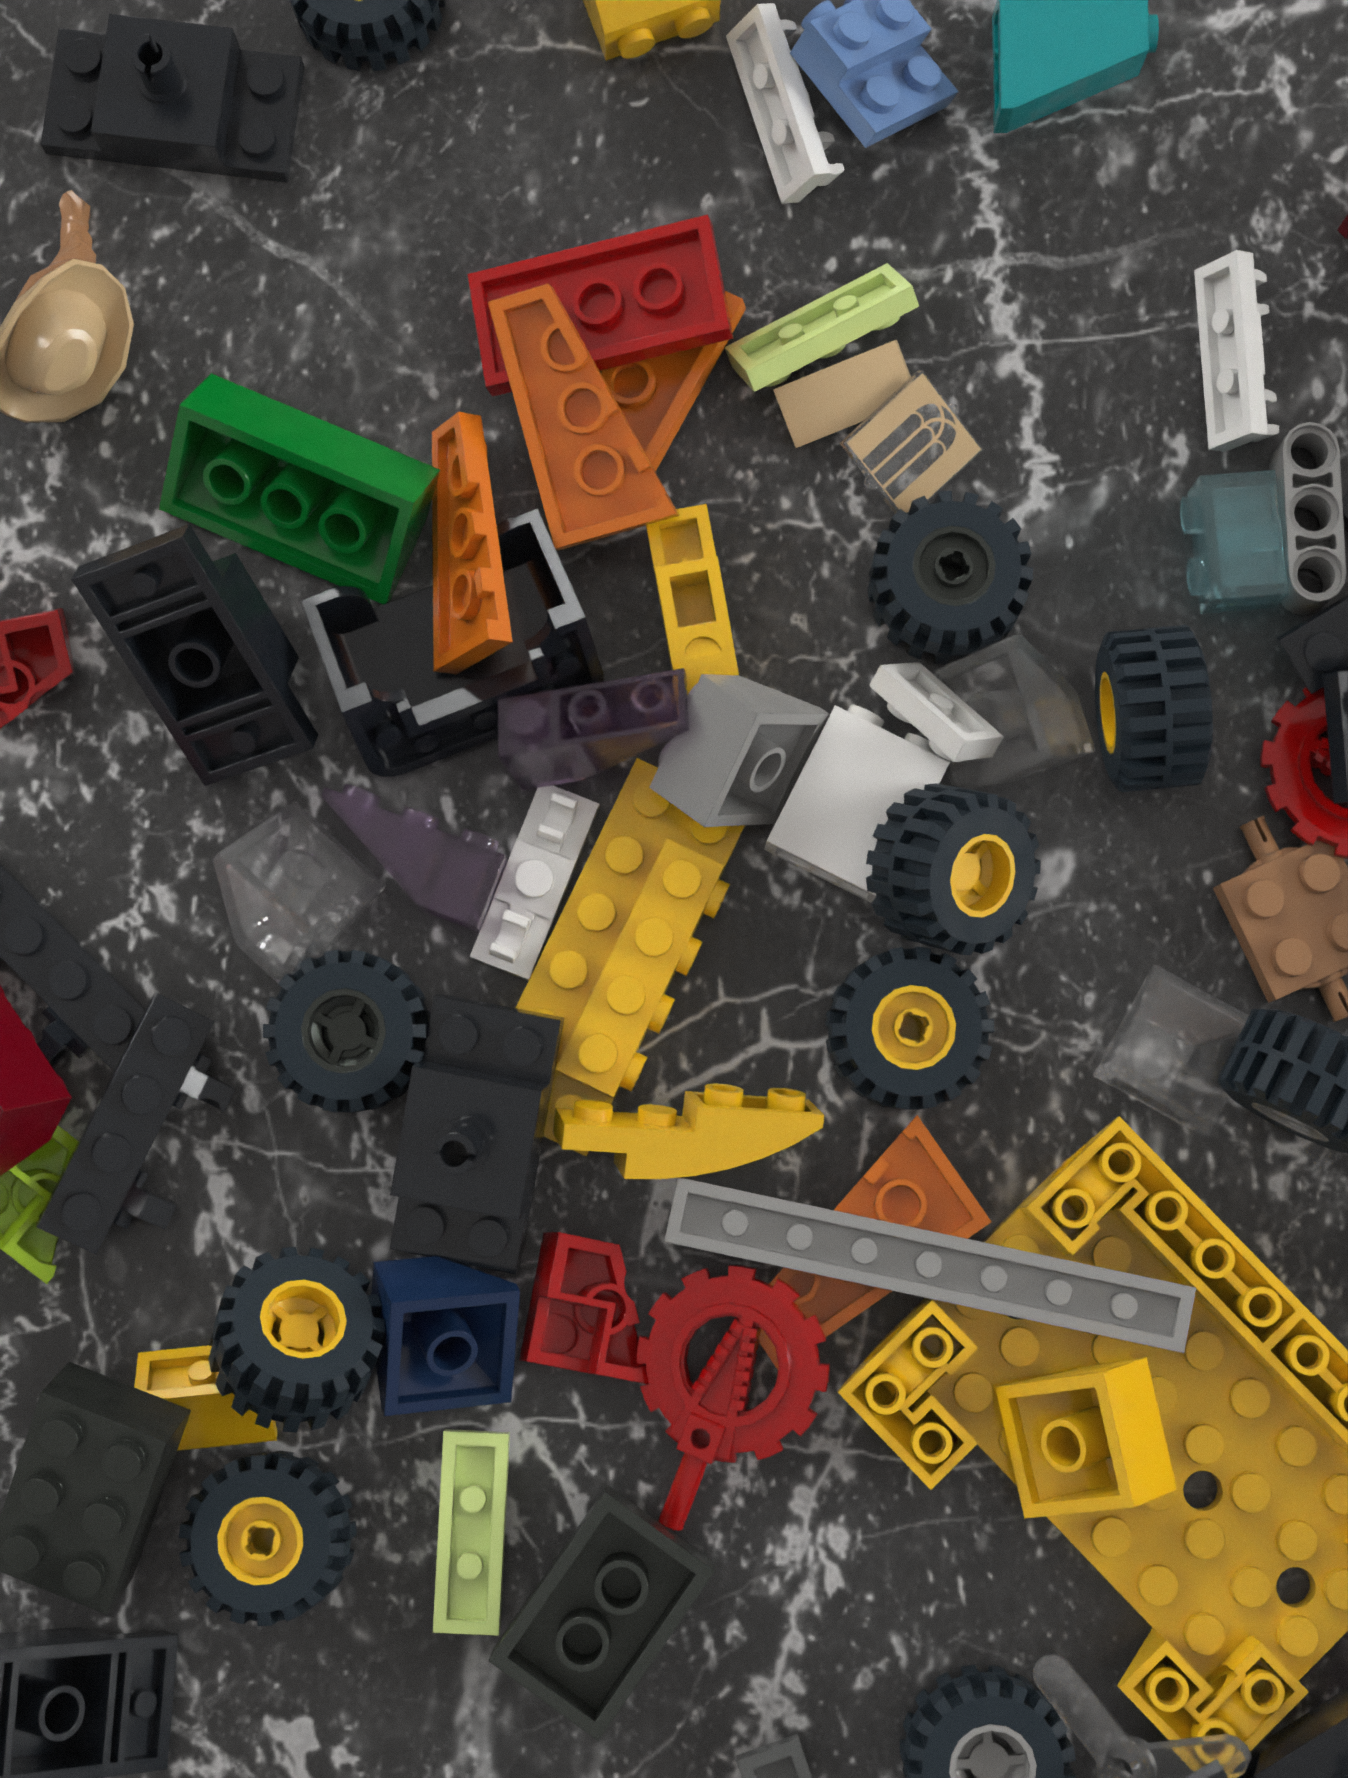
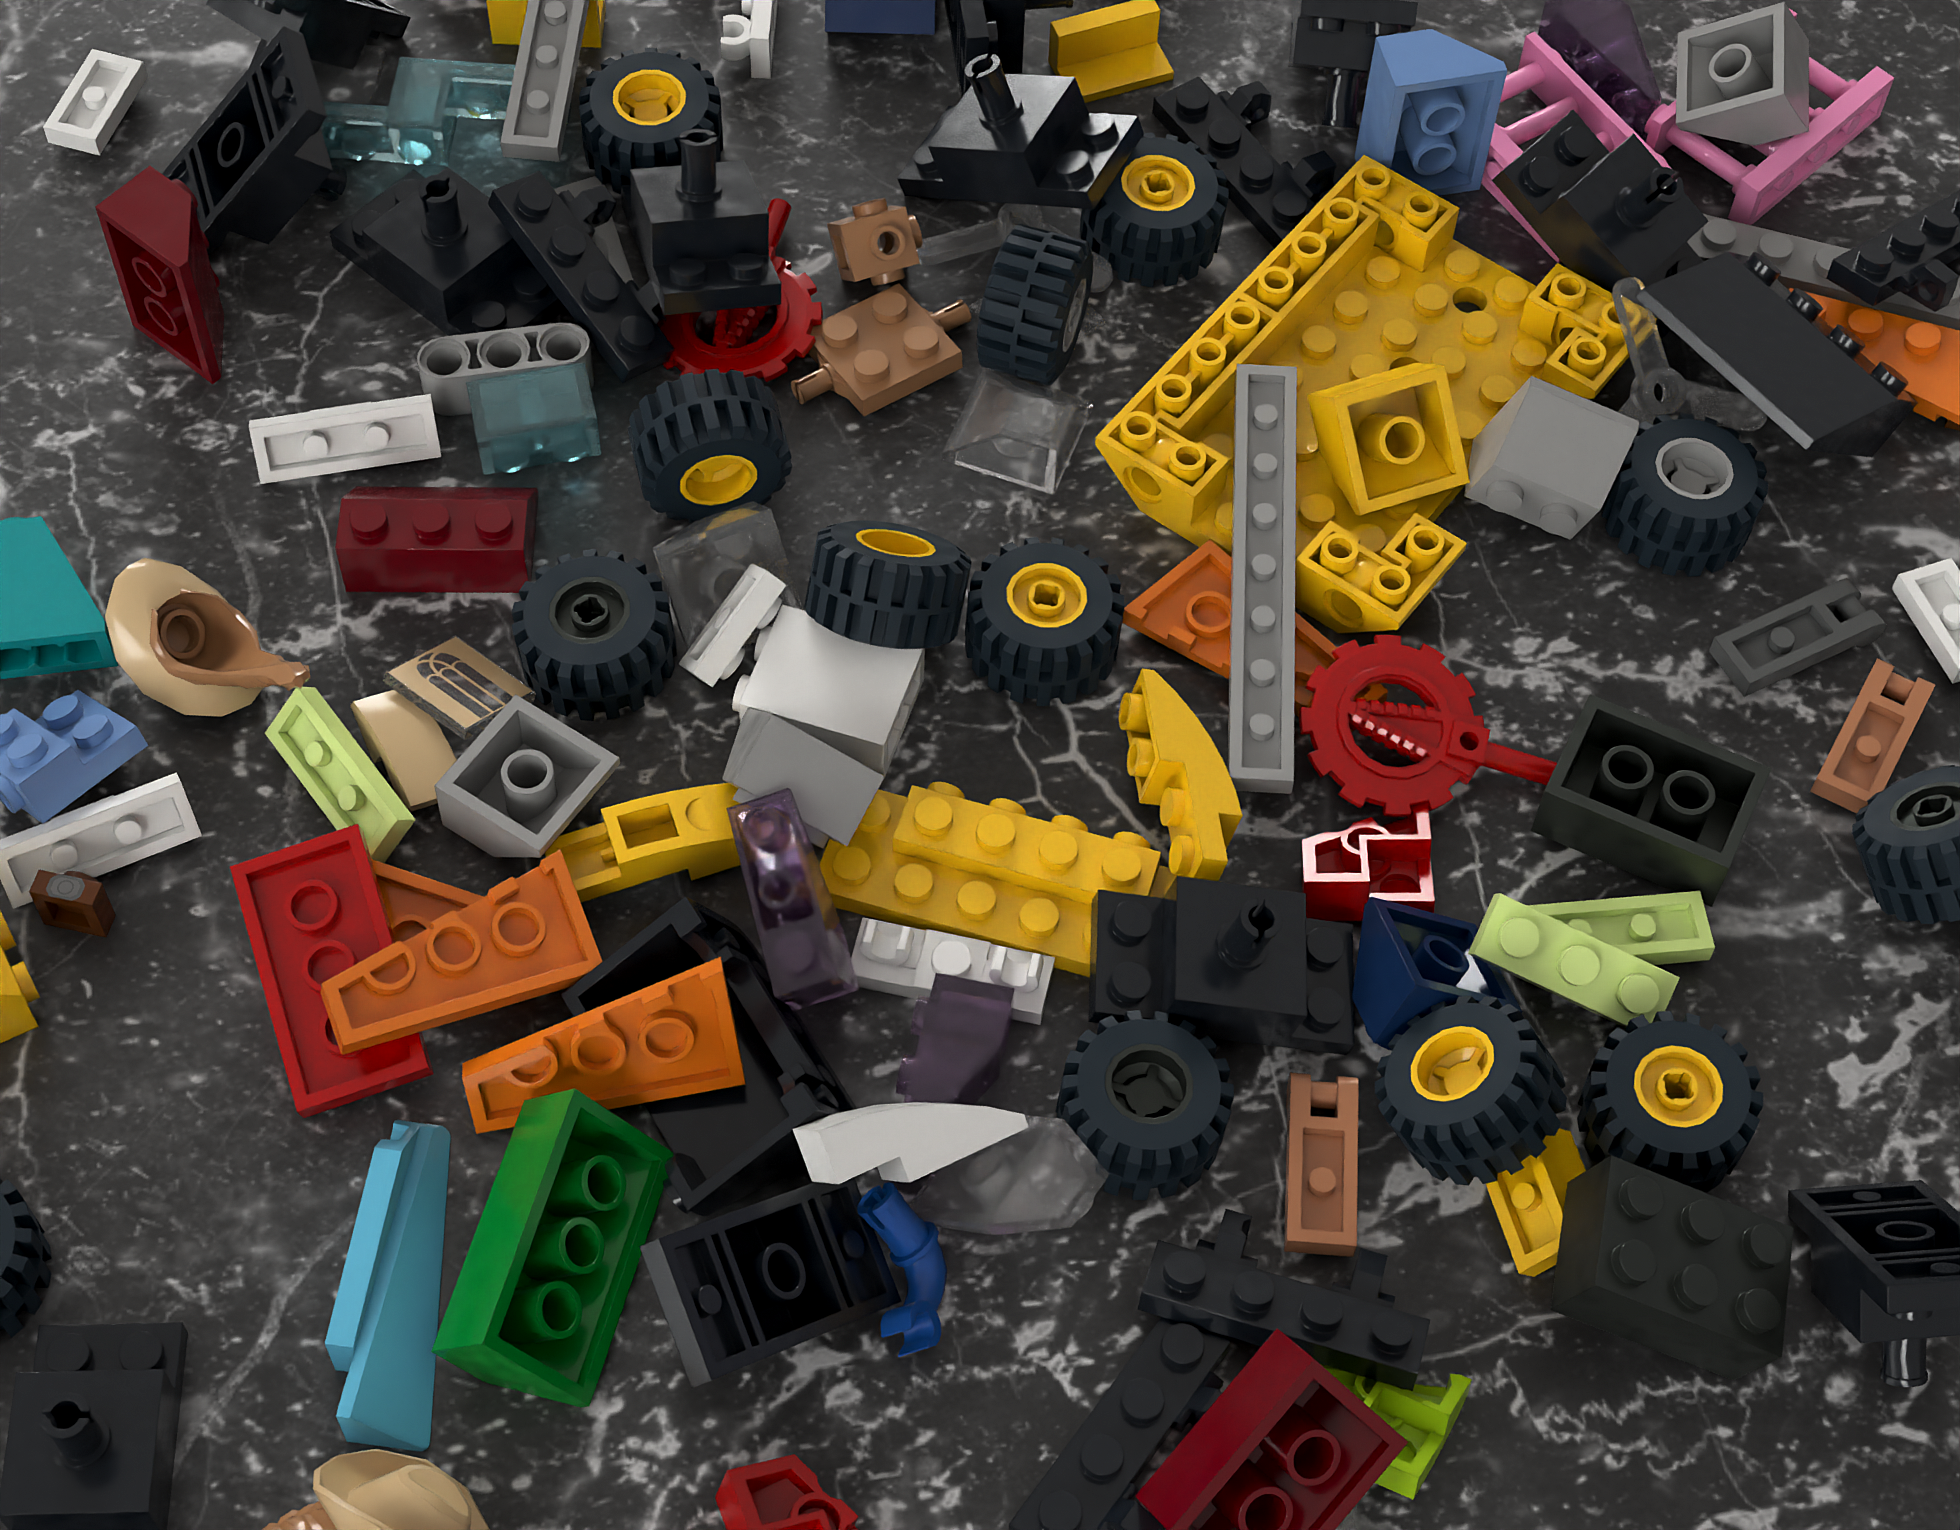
camera: 100 degrees left, 25 degrees down
(241, 806) = (918, 1251): none -> blue piece
(272, 1191) = (1321, 1166): none -> nougat plate
(292, 350) = (392, 1292): none -> medium azure wedge
(318, 795) = (900, 1139): none -> white slope
(429, 1480) = (1570, 963): none -> yellowish green plate
(716, 84) = (72, 902): none -> reddish brown plate
(771, 493) = (521, 782): none -> light grey slope
(987, 194) = (189, 643): none -> hat
(1028, 1607) = (1549, 457): none -> light grey slope
(1106, 438) = (437, 539): none -> dark red slope

